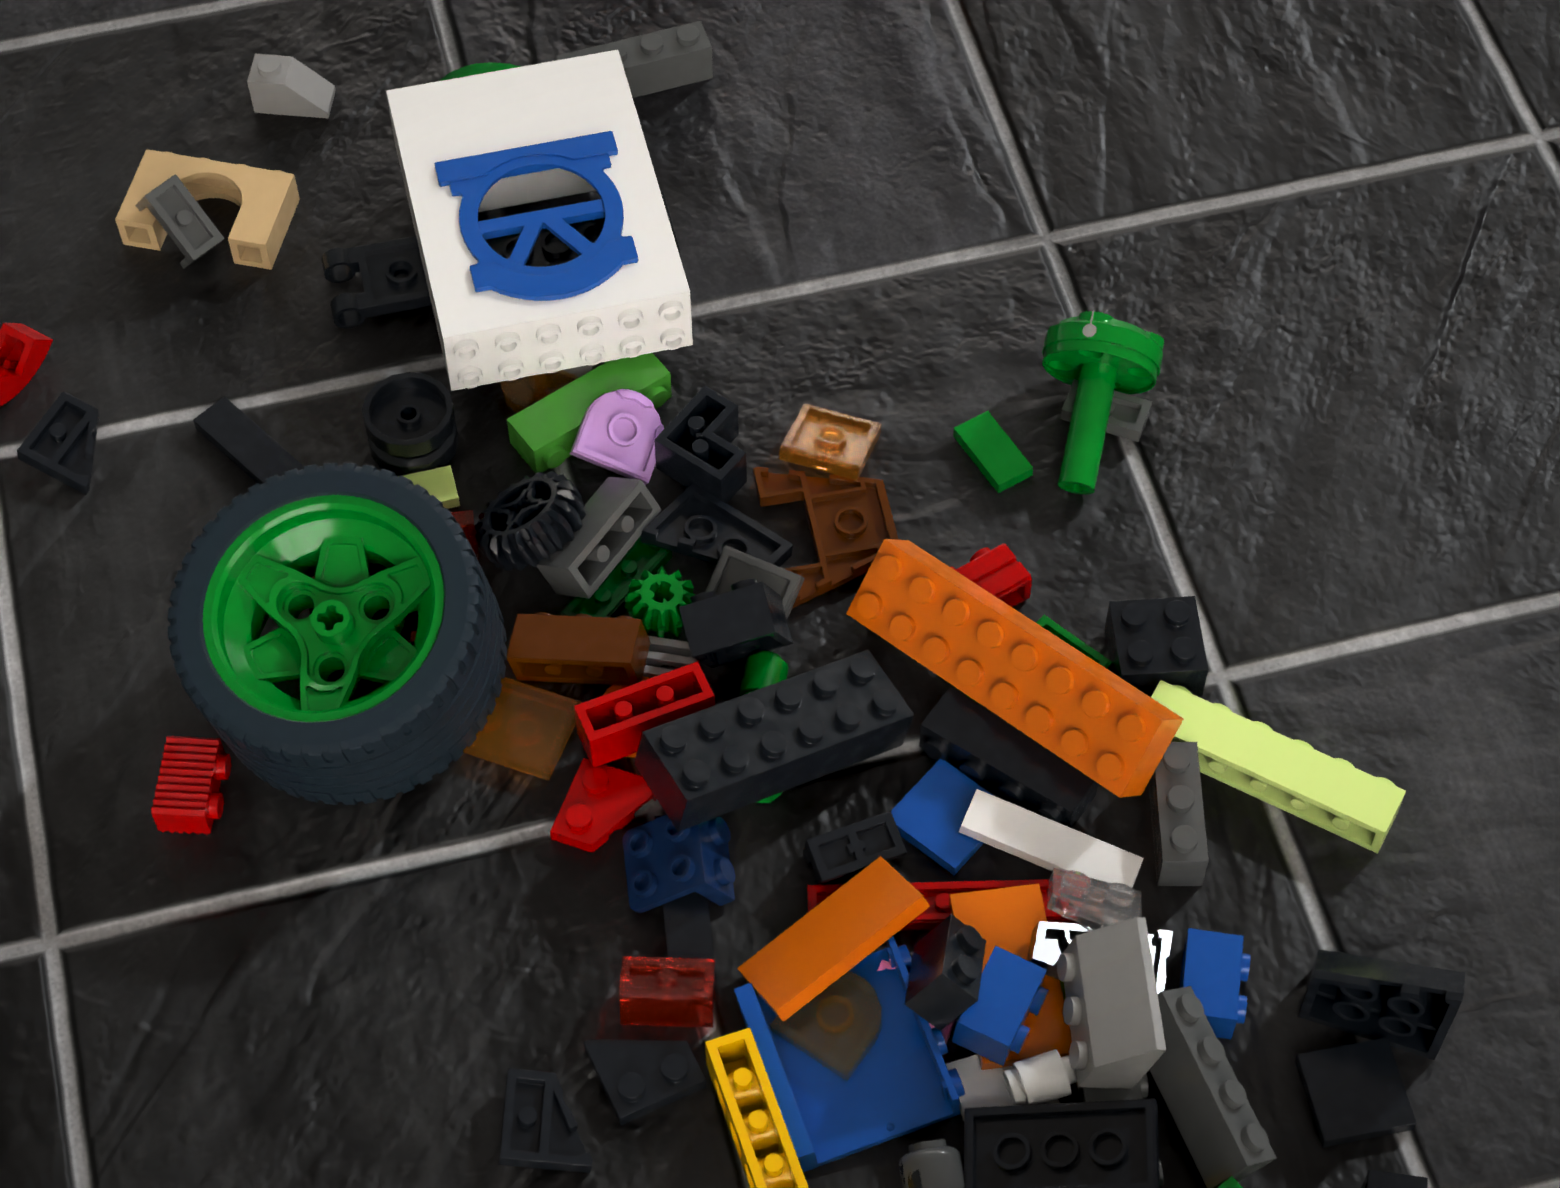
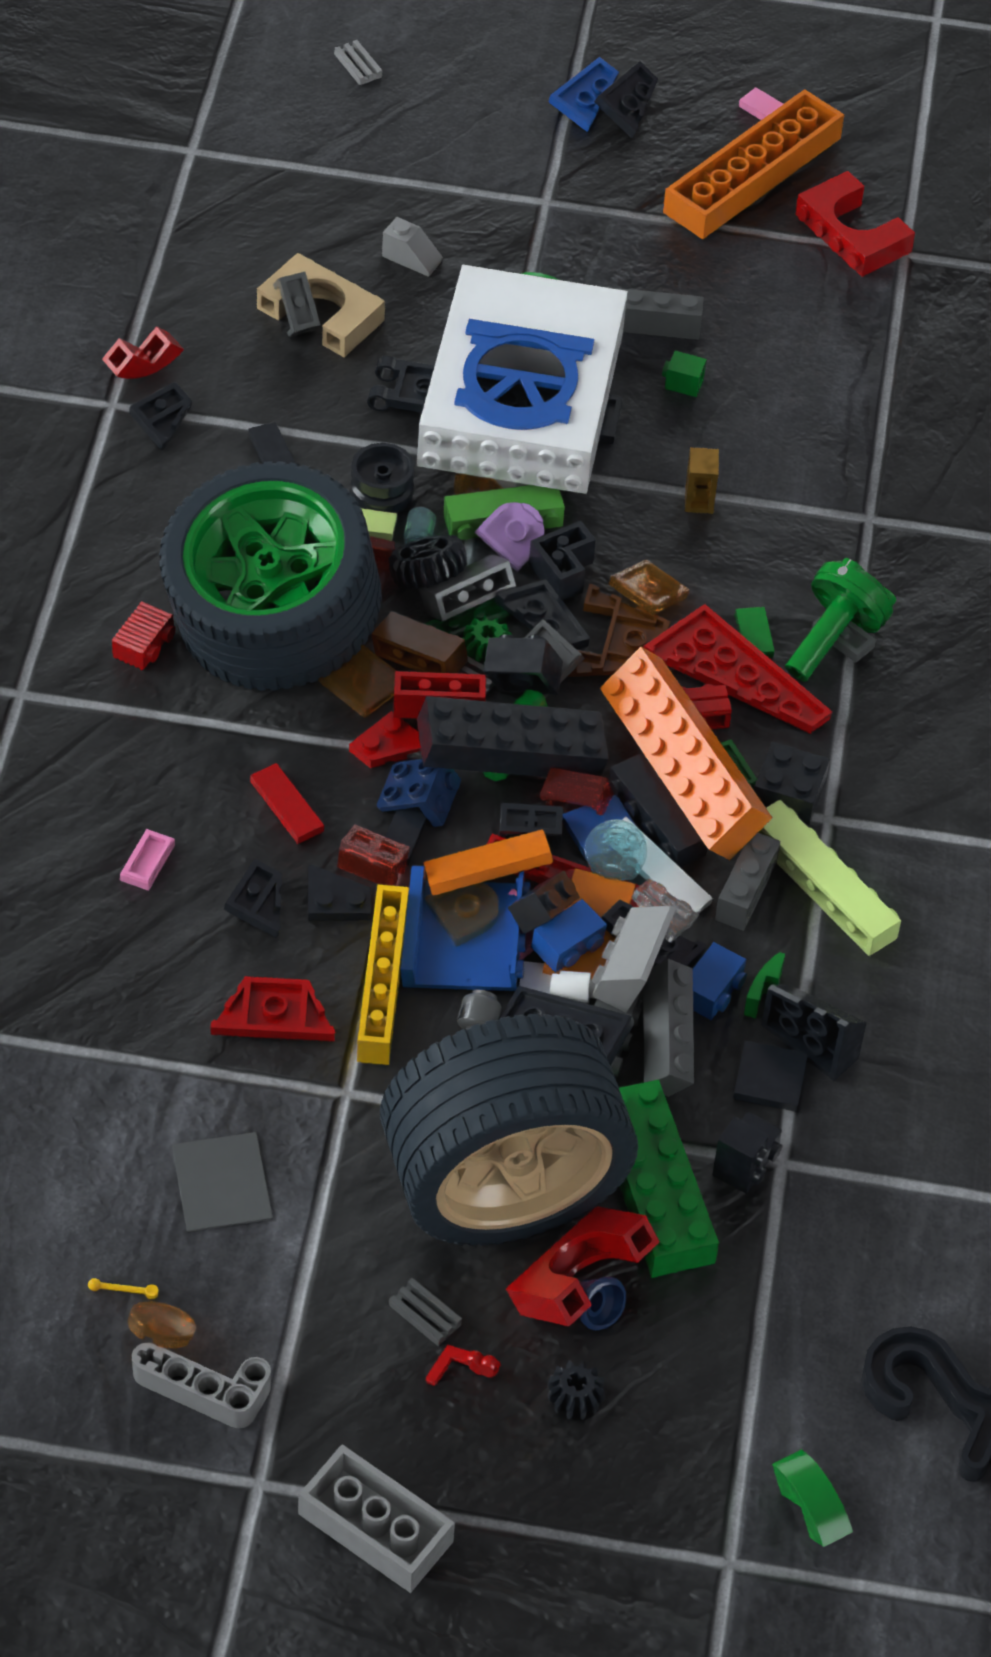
camera: 20 degrees right, 5 degrees down
(352, 1130) = (147, 859): none -> bright pink tile
(490, 471) = (419, 524): none -> clear light blue brick
(507, 957) = (287, 803): none -> red tile
(723, 130) = (684, 373): none -> green brick
(825, 268) = (701, 480): none -> pearl gold brick
(891, 776) = (577, 789): none -> clear red hinge
(974, 505) = (719, 655): none -> red wing
(992, 846) = (616, 850): none -> clear light blue tile
(1280, 954) = (767, 976): none -> green slope

